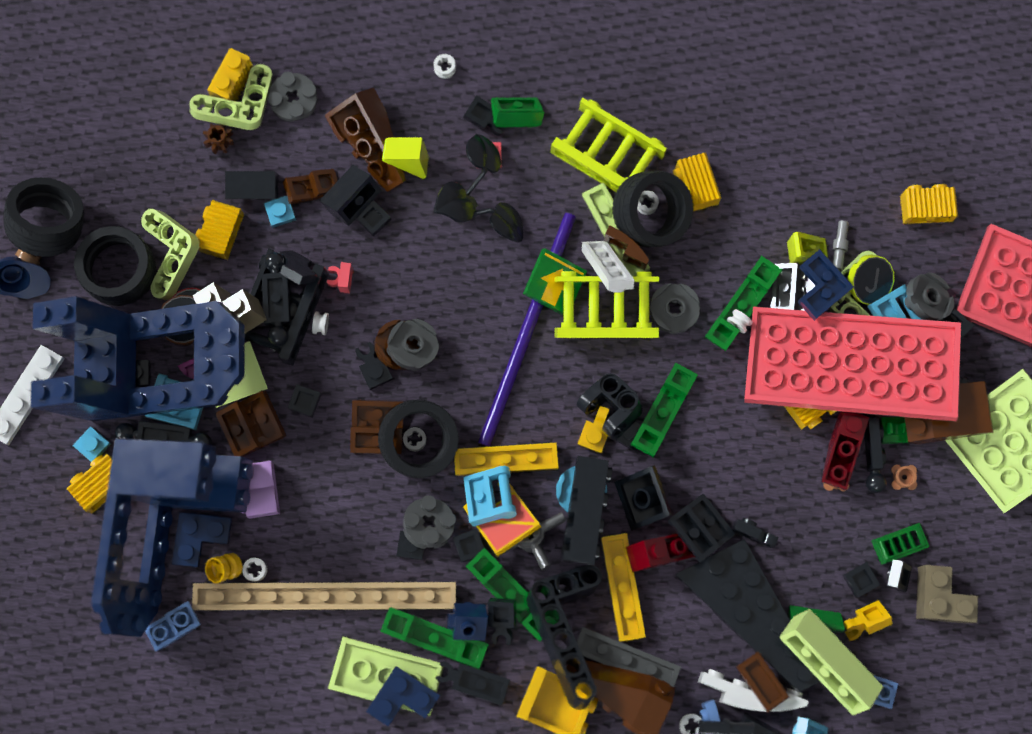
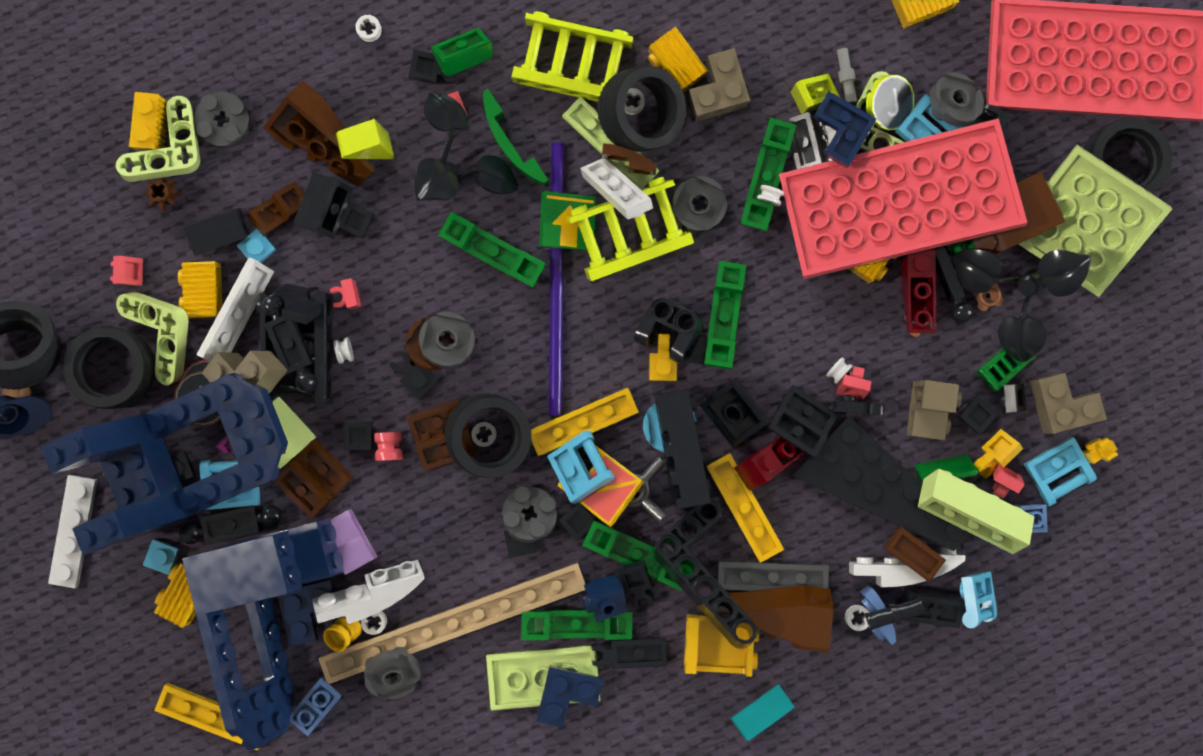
camera: 20 degrees left, 10 degrees up
(71, 597) = (193, 710): none -> yellow plate
(163, 191) = (127, 271): none -> coral tile
(242, 255) = (236, 309): none -> white plate
(253, 607) = (391, 661): none -> dark grey plate
(272, 542) = (381, 591): none -> white slope
(327, 418) = (388, 446): none -> coral wheel
(480, 284) = (492, 250): none -> green slope
(537, 226) = (529, 168): none -> green slope
(730, 221) = (724, 93): none -> dark tan brick
(749, 495) = (839, 370): none -> white bush
(758, 512) = (854, 384): none -> coral tile
(820, 556) = (930, 408): none -> dark tan brick
(868, 647) = (1006, 480): none -> coral tile
(920, 649) = (1056, 463): none -> medium azure plate
(962, 649) = (1100, 449): none -> yellow plate
(973, 473) = (1059, 269): none -> black plant

